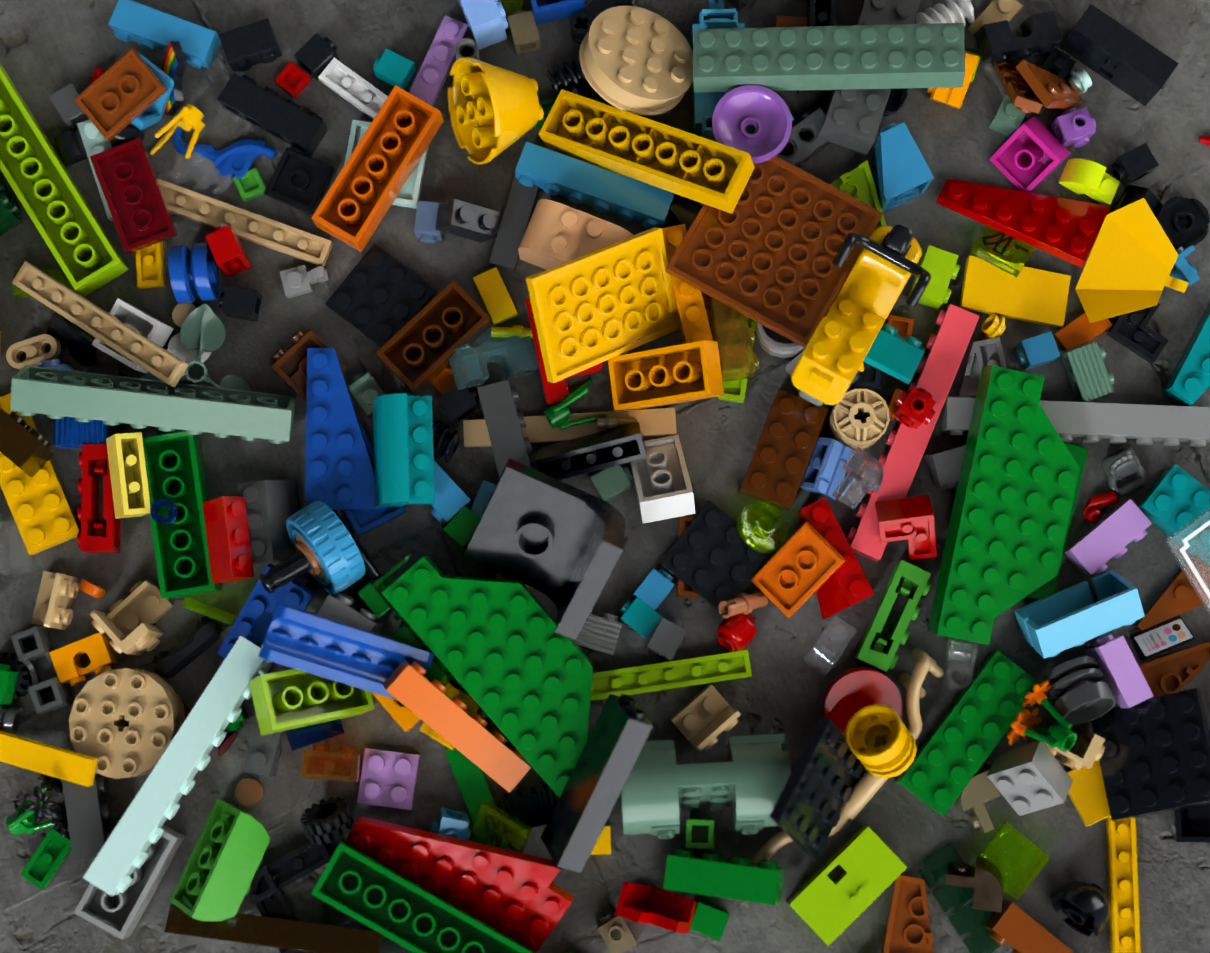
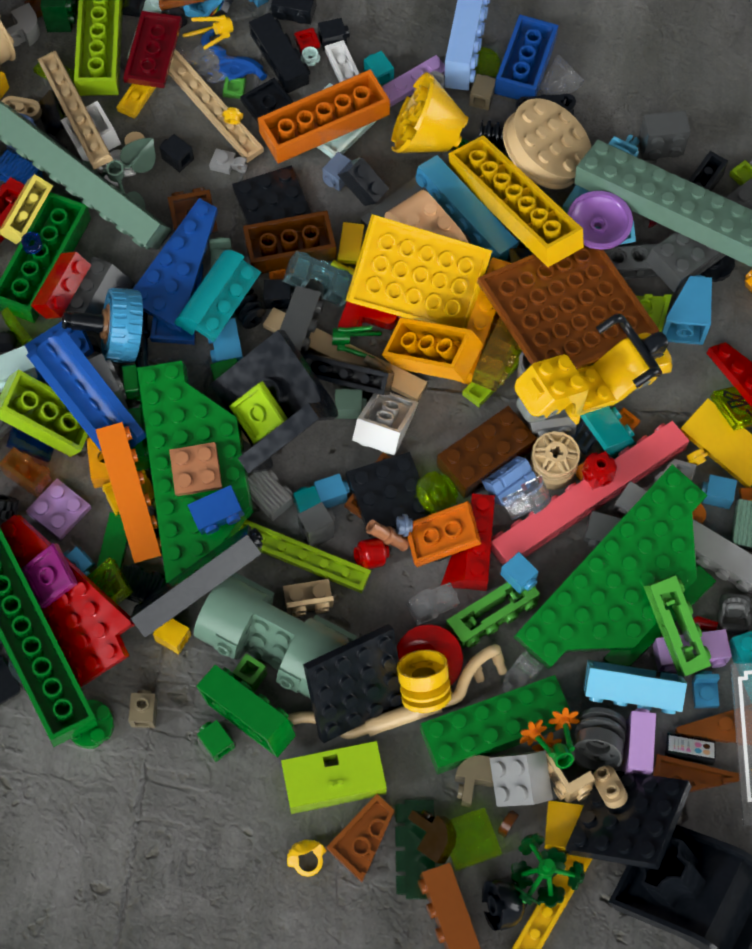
camera: 30 degrees right, 15 degrees down
(193, 273) = (158, 114): blue wheel -> none
(228, 251) = (190, 114): red brick -> none
(276, 225) = (232, 116): none -> yellow plate
(304, 93) = (310, 52): none -> light aqua plate
(438, 867) = (49, 575): none -> magenta tile
(515, 665) = (195, 469): none -> nougat plate
(539, 563) = (258, 412): none -> lime tile
(566, 698) = (216, 510): none -> blue brick
(656, 907) = (181, 702): red panel -> none
(754, 585) = (404, 525): none -> sand blue plate
(903, 568) = (519, 573): none -> dark azure brick
(911, 521) = (548, 546): red panel -> none
(942, 269) = (672, 400): lime brick -> none
(1037, 823) = (508, 823): none -> reddish brown tile
(1065, 505) = (685, 659): none -> bright green brick
(1117, 732) = (610, 787): none -> tan plate
(1118, 868) = (550, 865): none -> dark green plant
(1142, 570) = (705, 690): none -> dark azure bracket

